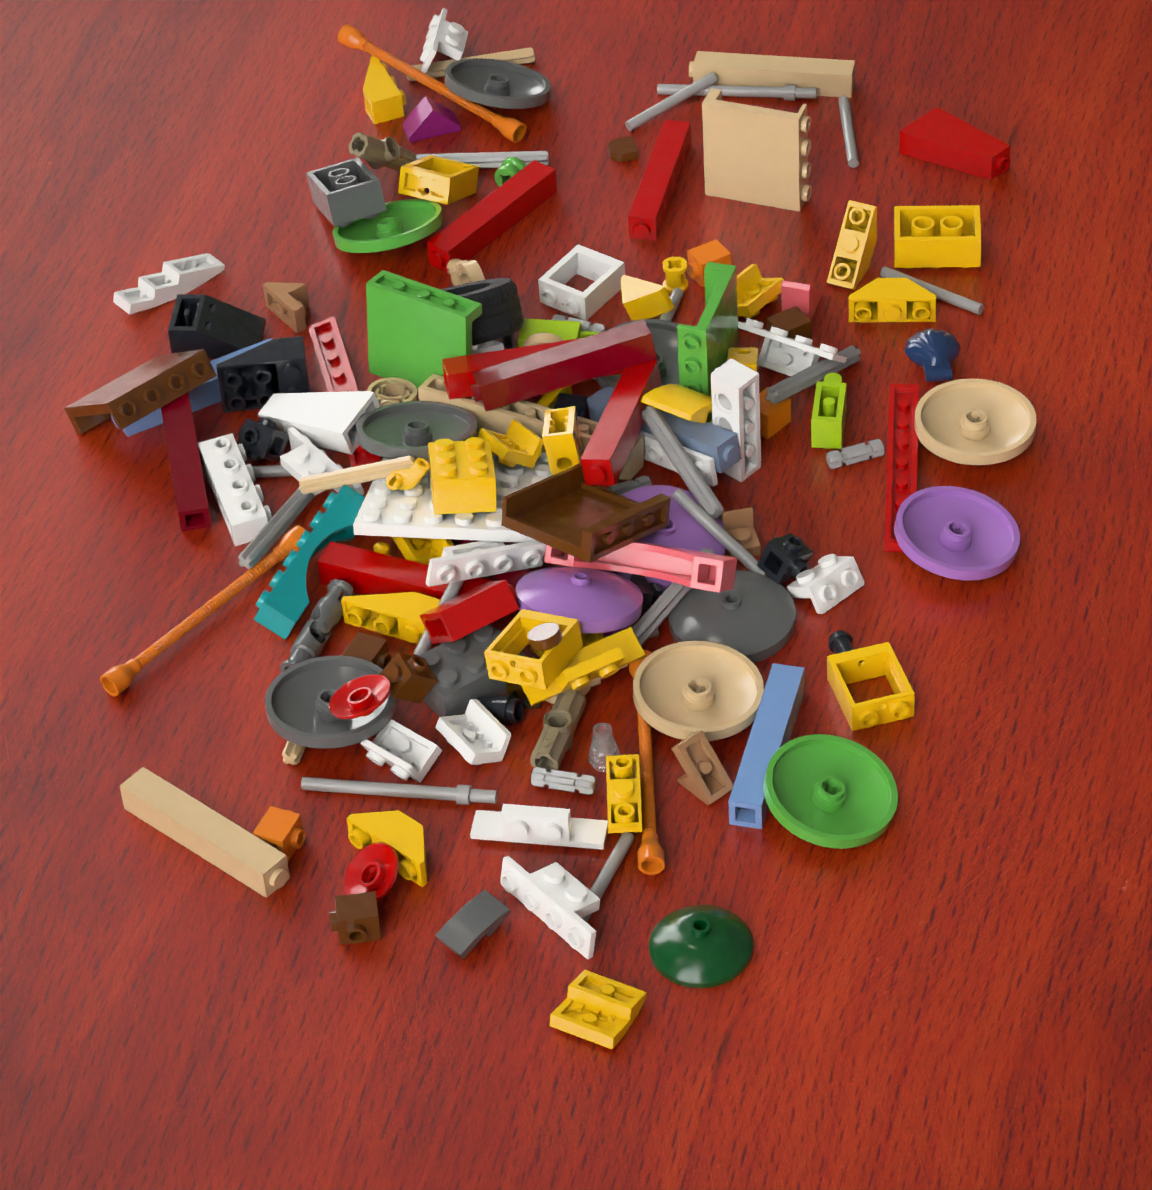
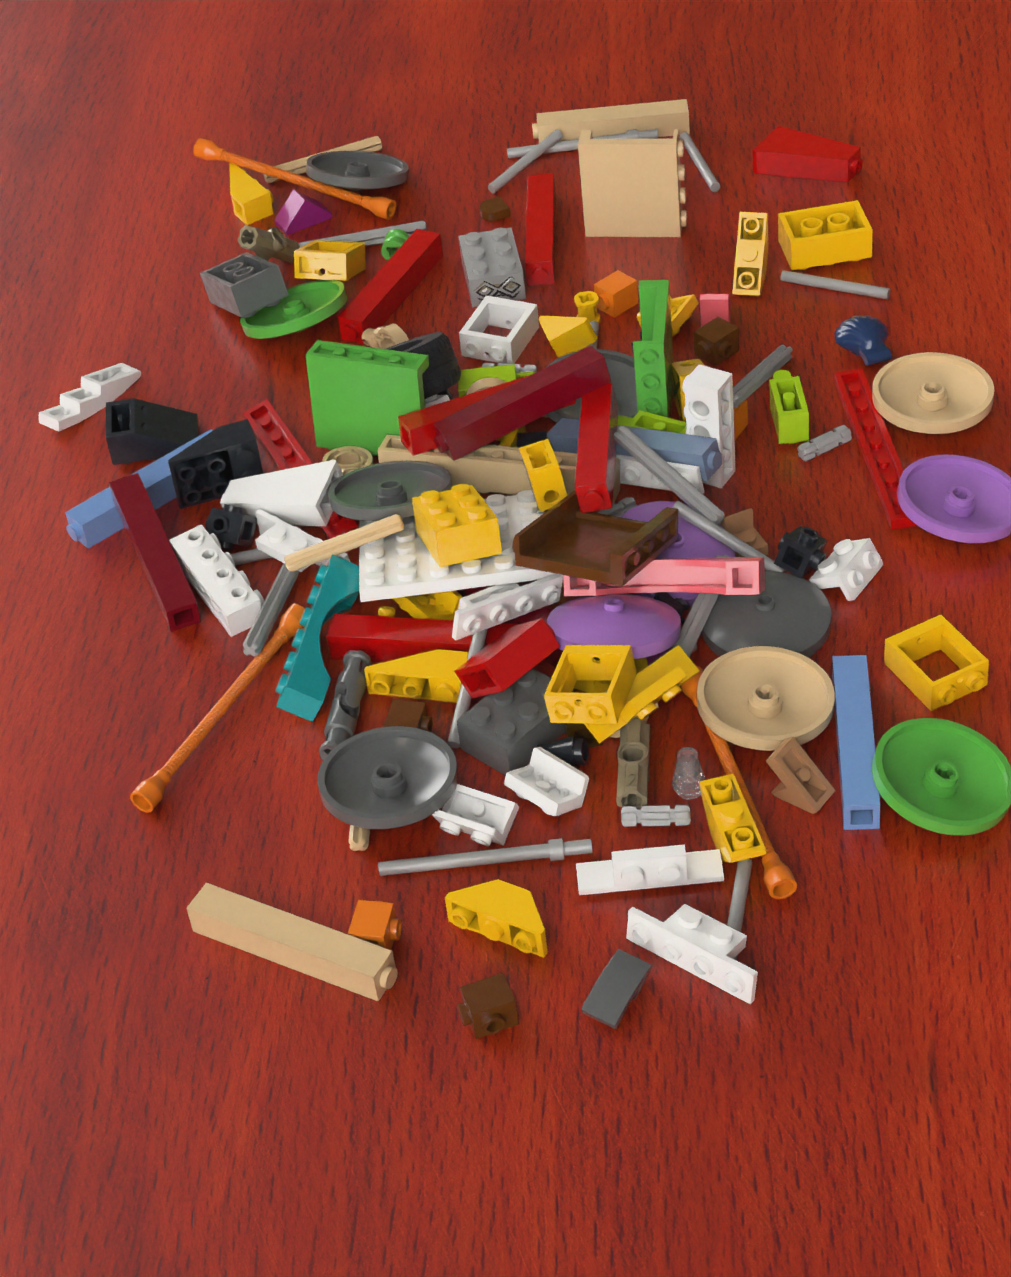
camera: 10 degrees left, 0 degrees up
(142, 390) = (96, 498): reddish brown panel -> none
(288, 303) = (215, 395): medium nougat slope -> none
(360, 697) = (422, 766): red dish -> none
(372, 870) = (488, 950): red dish -> none
(407, 478) = (399, 536): yellow arm -> none
(409, 677) = (465, 736): reddish brown brick -> none
(444, 38) = (292, 138): white bracket -> none
(516, 447) = (496, 486): yellow bracket -> none
(544, 636) = (604, 668): tile -> none
(597, 212) = (492, 265): none -> light grey brick
(598, 1009) = (784, 1058): yellow slope -> none
(680, 402) = (650, 418): yellow slope -> none
(701, 946) = (866, 967): dark green dish -> none
(785, 353) = (733, 358): white bracket -> none
(840, 642) = (887, 625): black pin -> none
(892, 302) = (805, 299): yellow slope -> none

